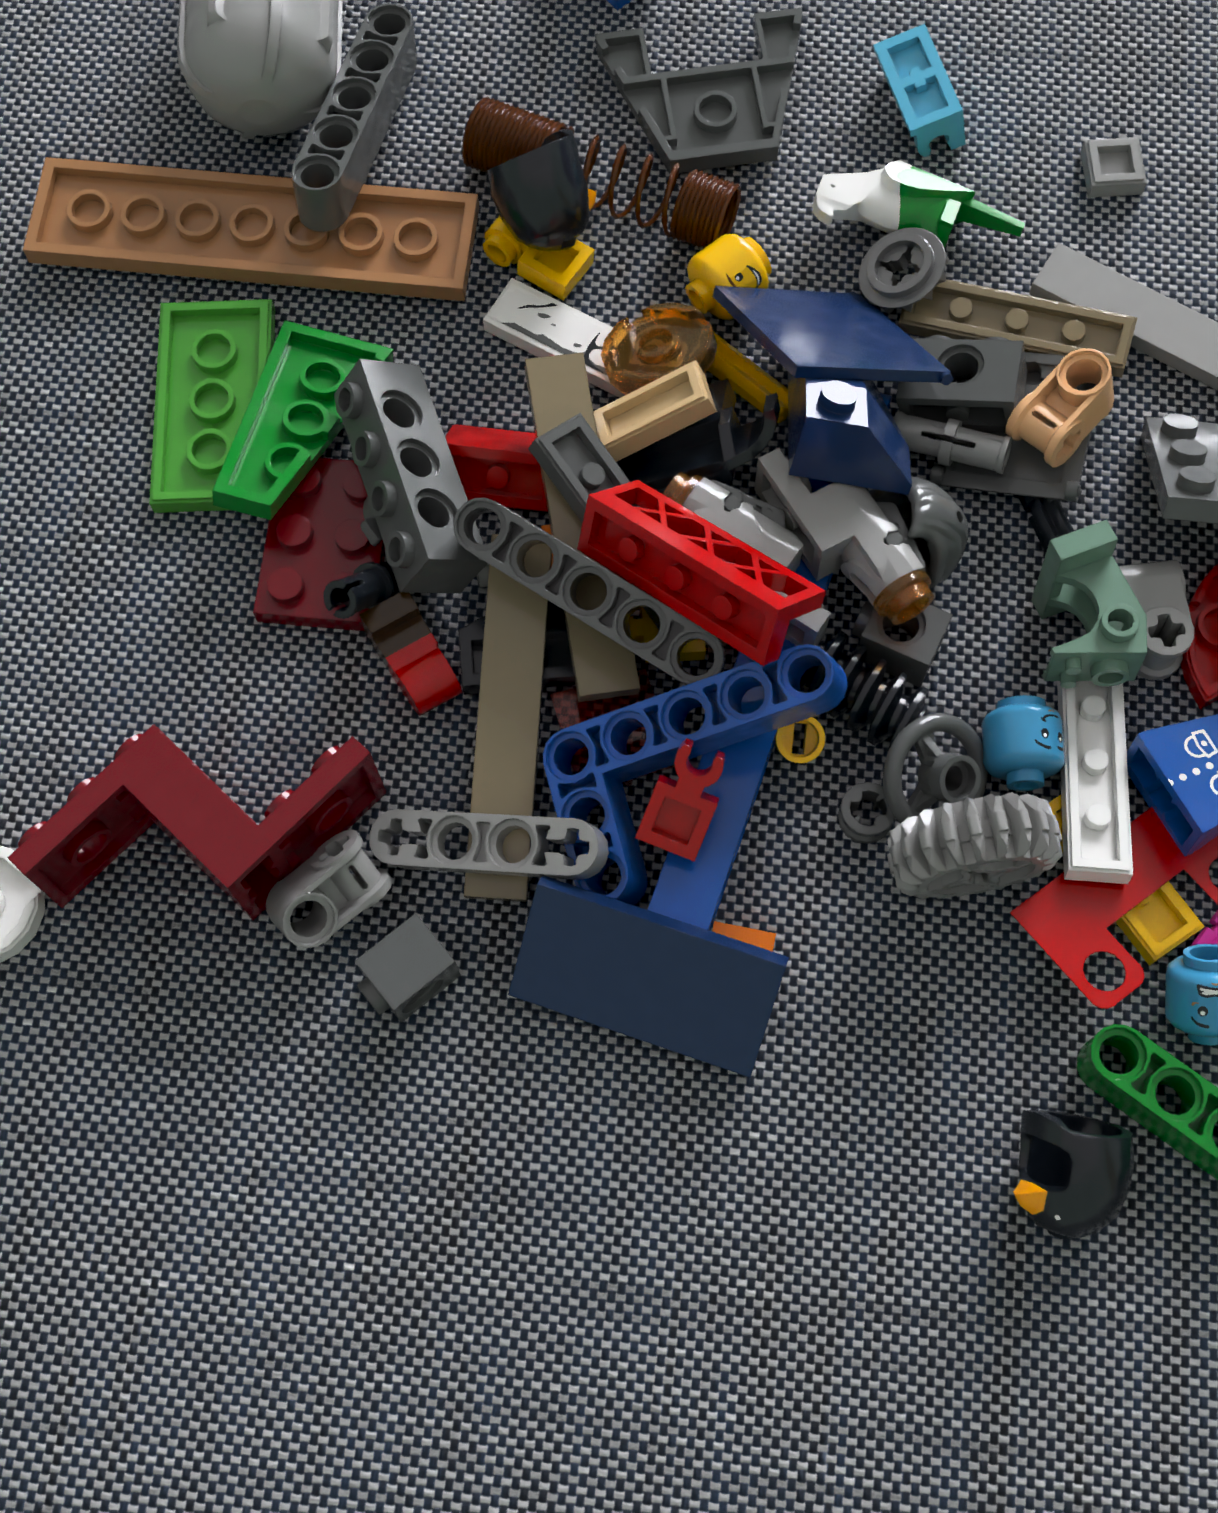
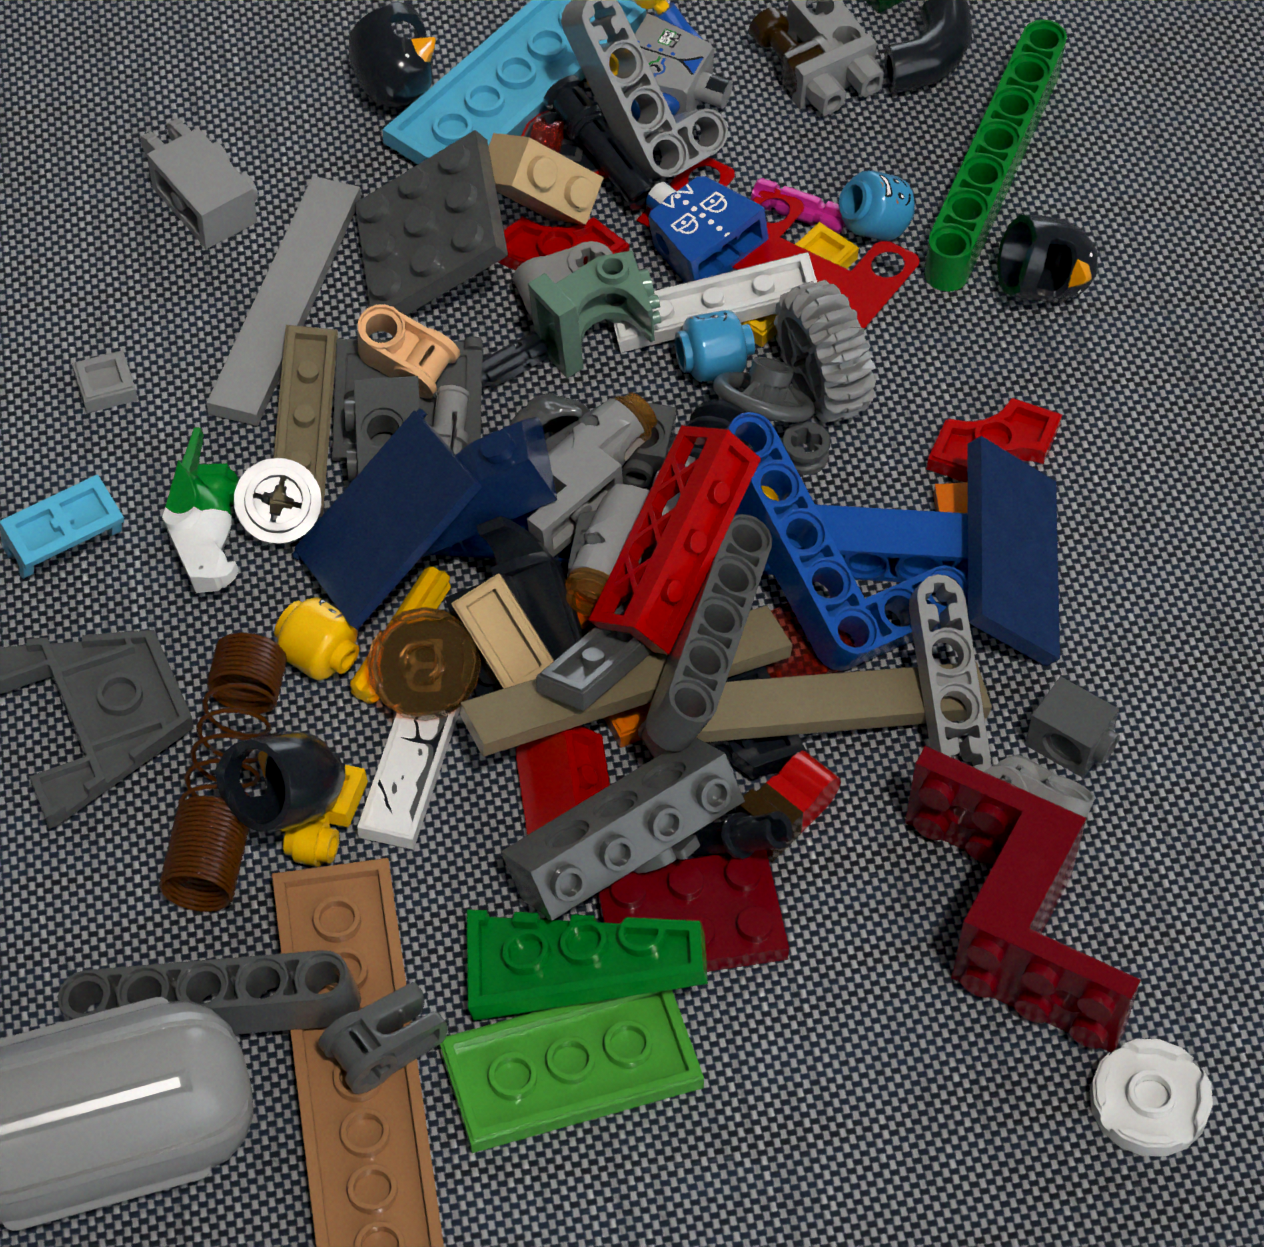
camera: 110 degrees left, 15 degrees down
(259, 216) = (368, 1048): none -> dark grey piece
(681, 809) = (877, 530): red plate -> none
(834, 1059) = (1018, 429): none -> red tile

